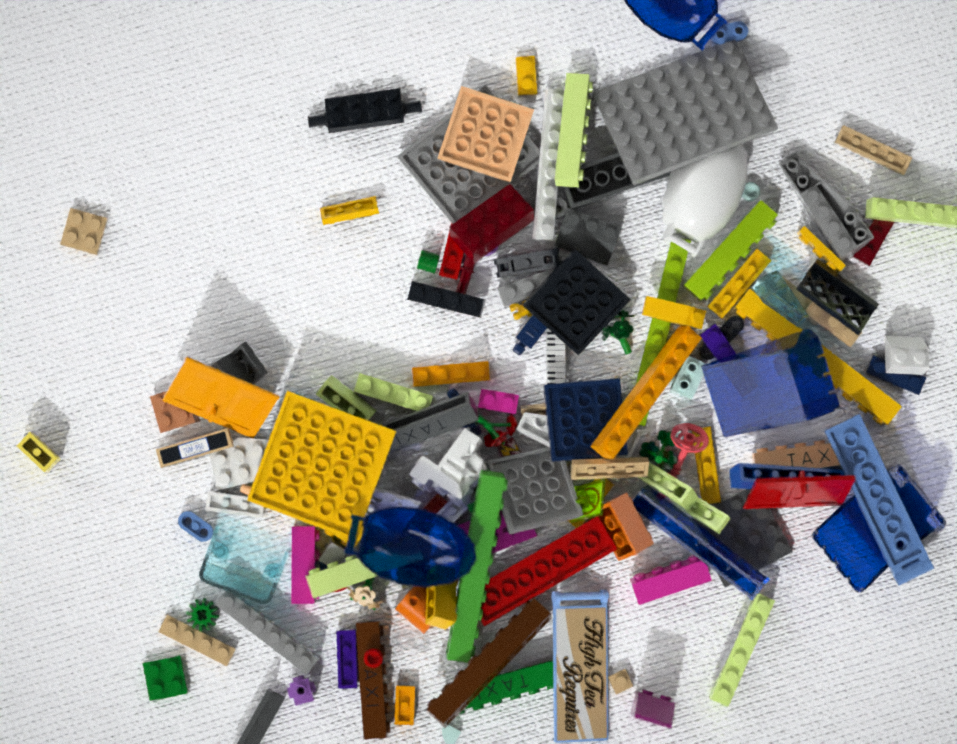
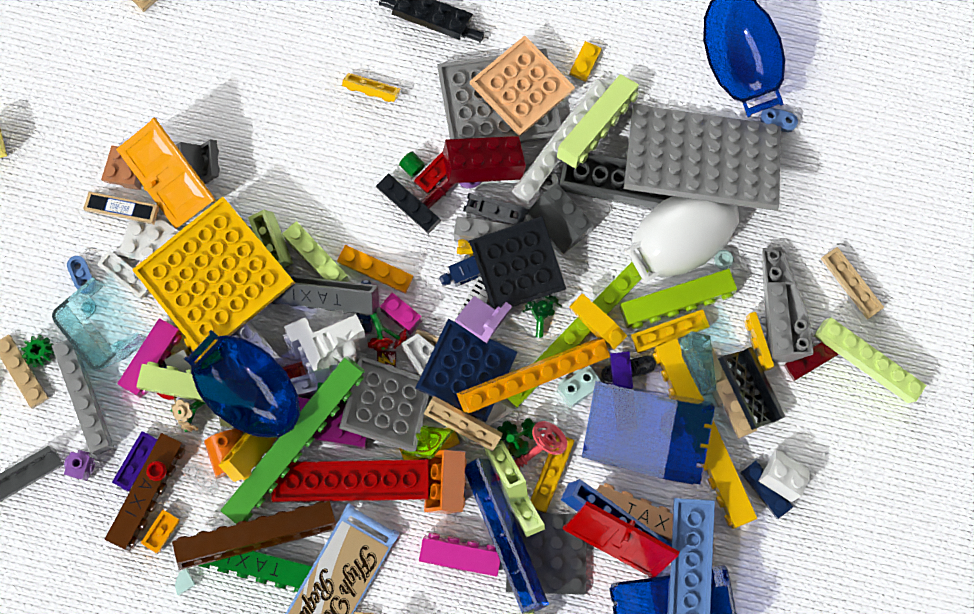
camera: 30 degrees right, 10 degrees down
(573, 367) = (481, 318): none -> lavender bracket

